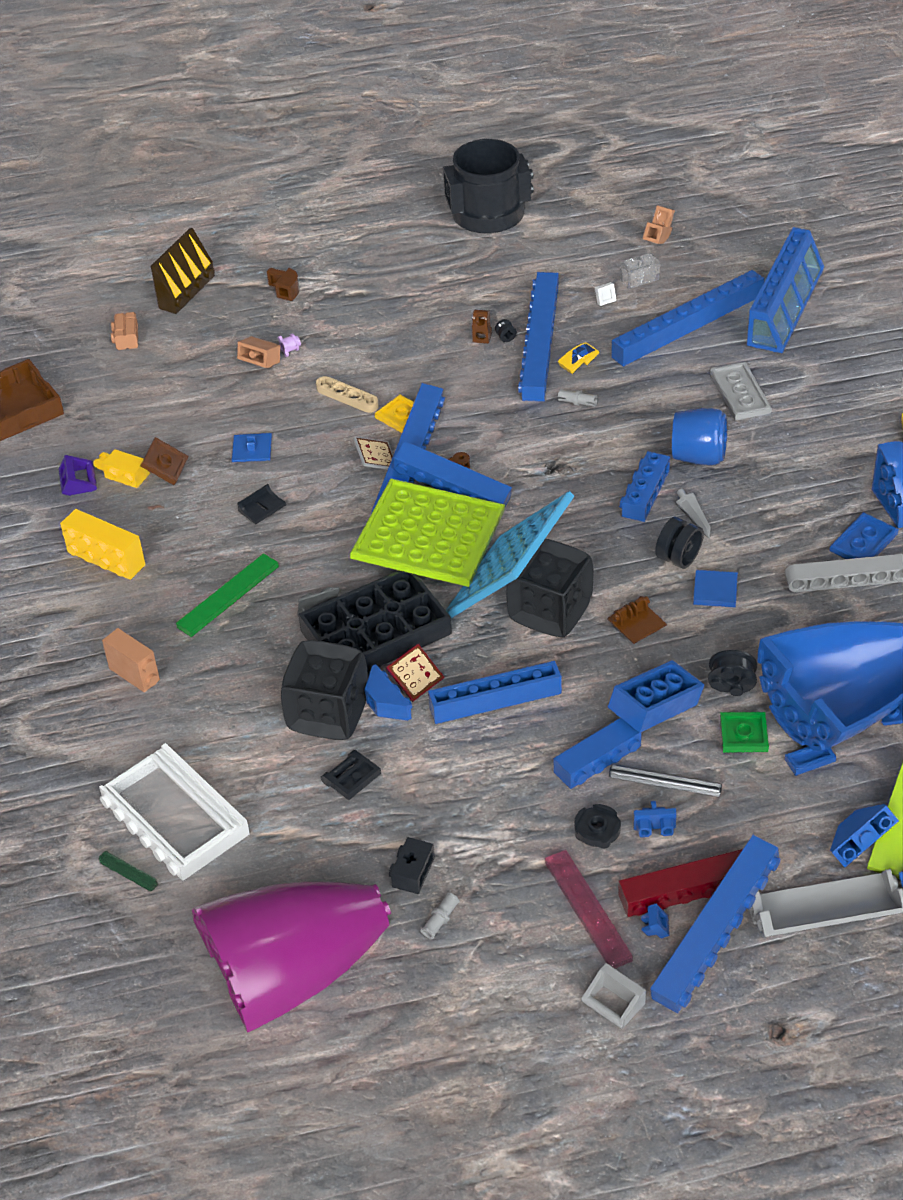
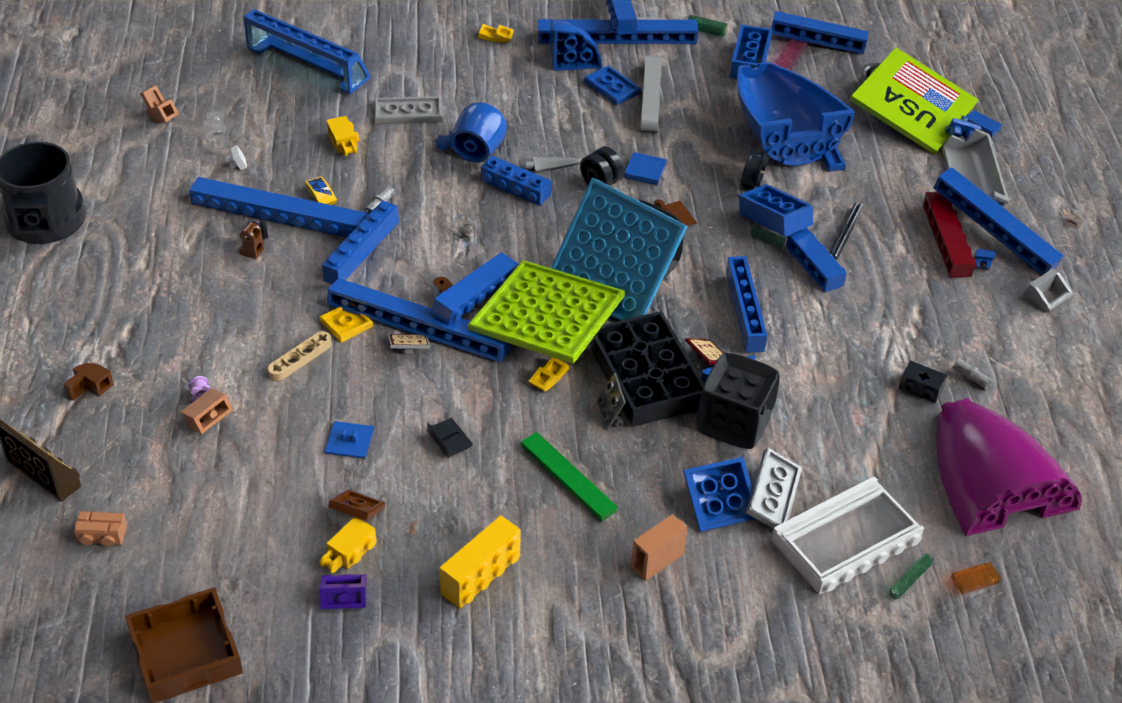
camera: 85 degrees left, 0 degrees up
(131, 929) = (976, 578): none -> clear orange tile
(214, 704) = (719, 493): none -> blue slope
(225, 744) = (774, 489): none -> tile
(344, 559) = (548, 376): none -> yellow slope
(353, 779) = (821, 406): black plate -> none
(506, 396) = (360, 242): none -> blue brick
(588, 910) = (964, 294): clear pink tile -> none
(593, 836) = (892, 281): black plate -> none
(654, 818) = (889, 241): blue hips -> none
(668, 351) = (342, 135): none -> yellow brick
(686, 318) = (303, 117): blue brick -> none
(744, 732) = (805, 181): green plate -> none
(861, 831) = (915, 141): blue slope -> none

